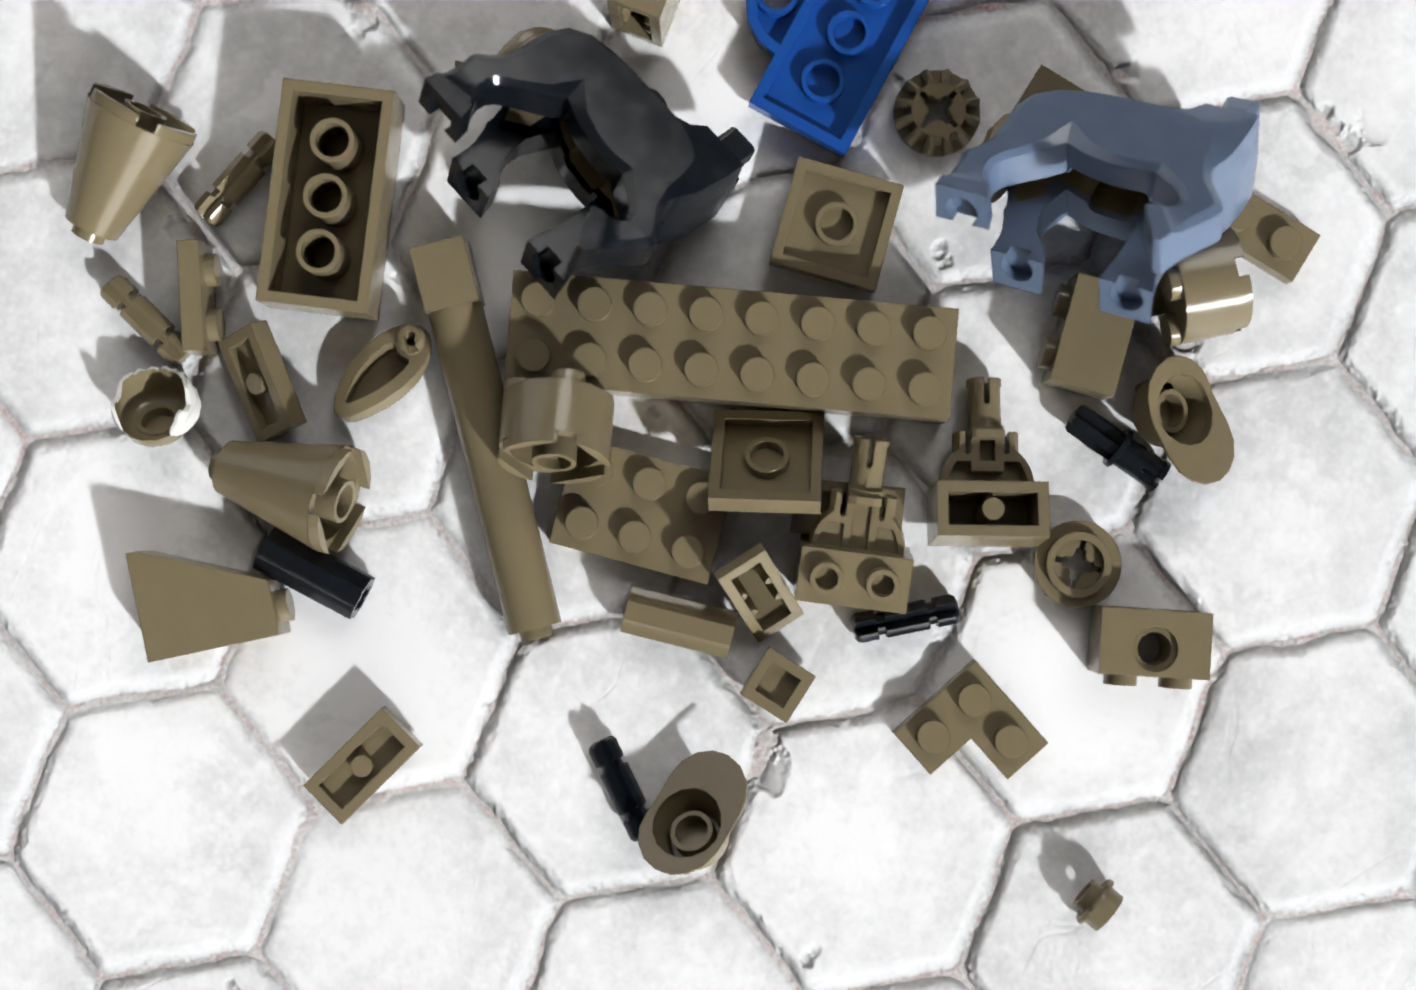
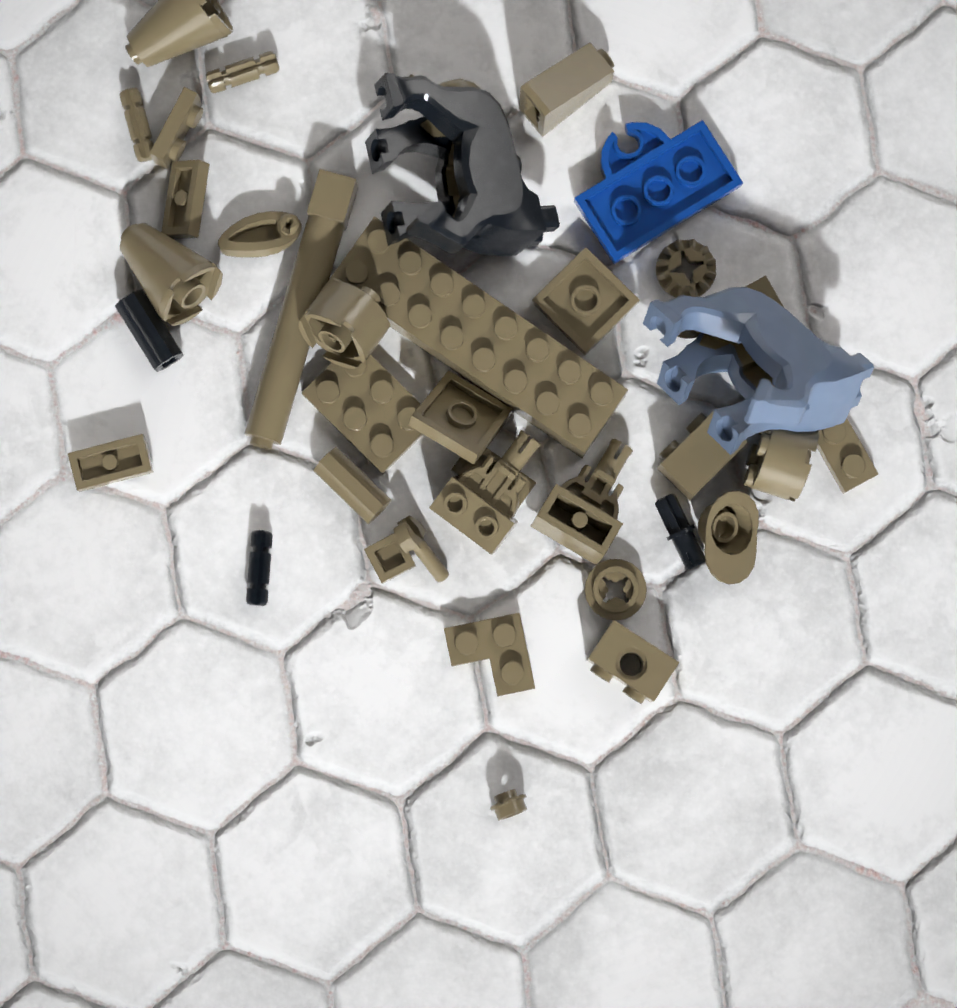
camera: 30 degrees right, 5 degrees down
(155, 405) = (113, 177): dark tan hair -> none
(203, 605) = (71, 313): dark tan slope -> none
(330, 199) = (289, 115): dark tan brick -> none
(693, 814) = (292, 605): dark tan piece -> none
(758, 592) = (410, 491): dark tan slope -> none
(791, 648) = (410, 537): none -> dark tan bar
(919, 616) = (492, 564): black axle -> none

